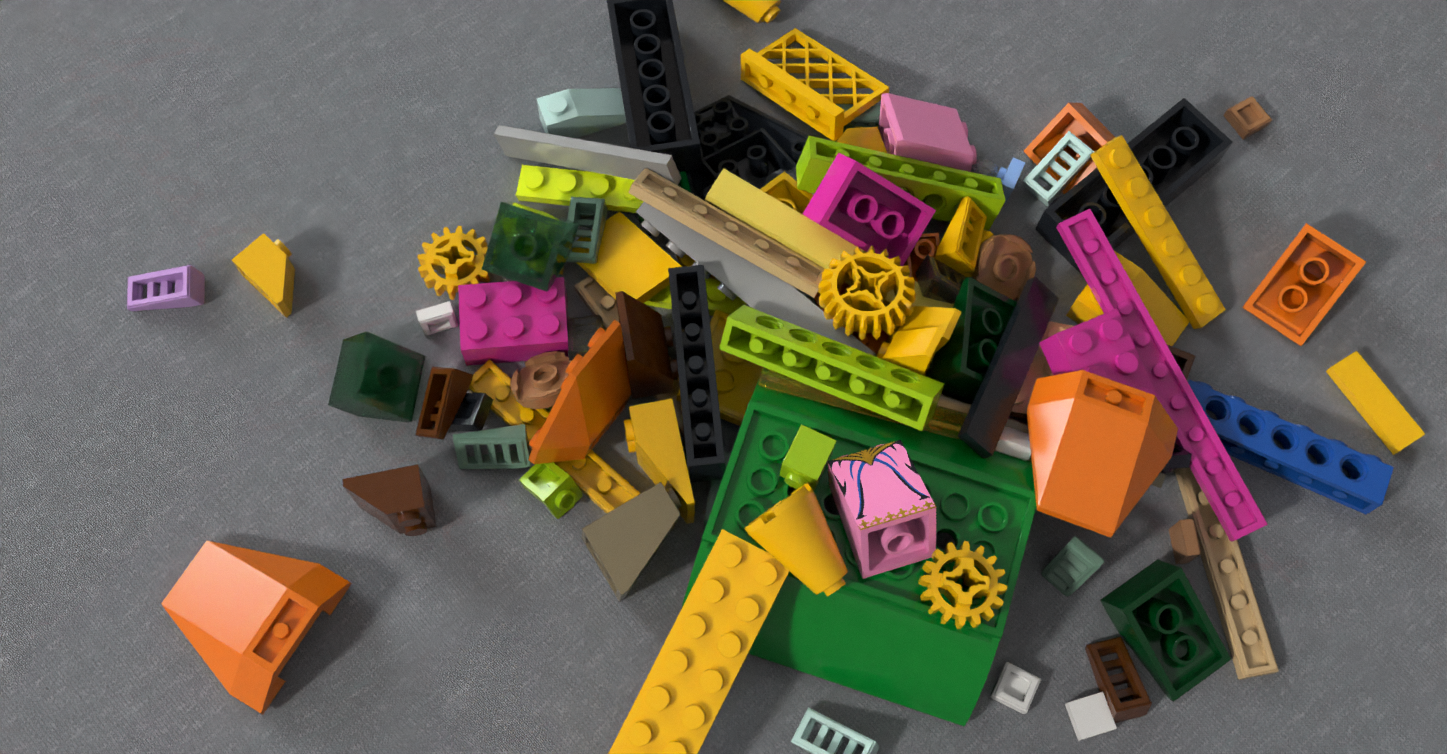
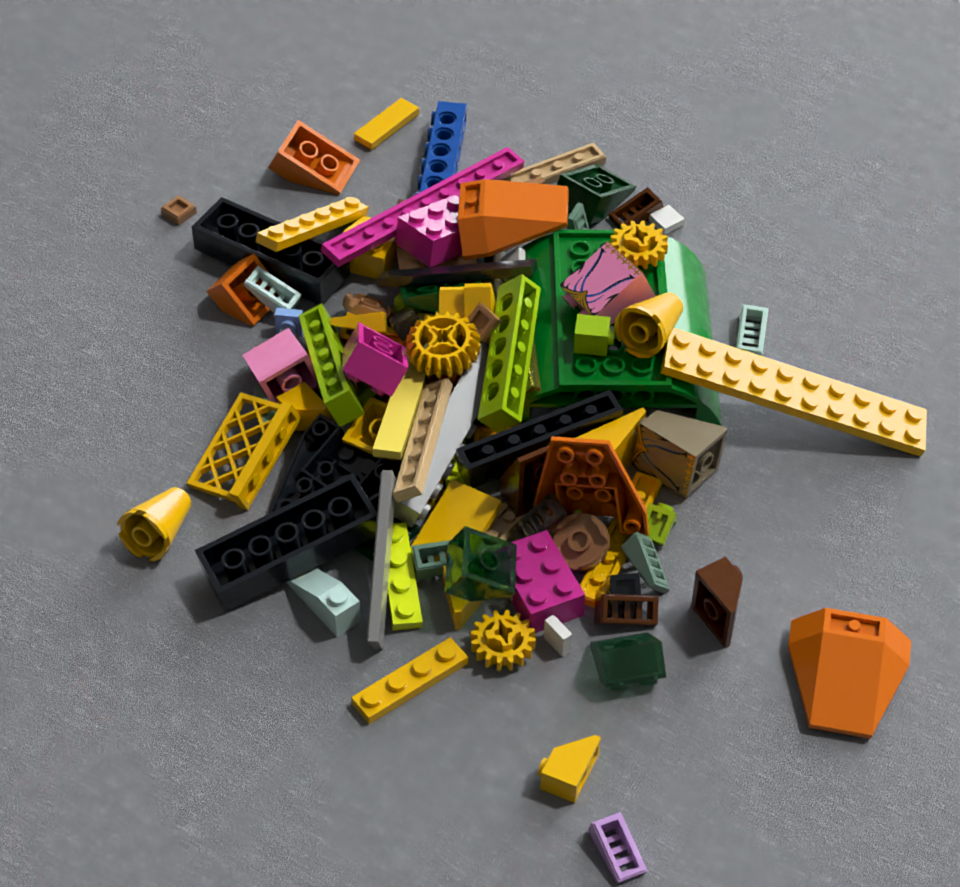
camera: 105 degrees left, 20 degrees down
(452, 167) = (409, 680): none -> yellow plate
(885, 344) = (484, 321): none -> medium nougat tile

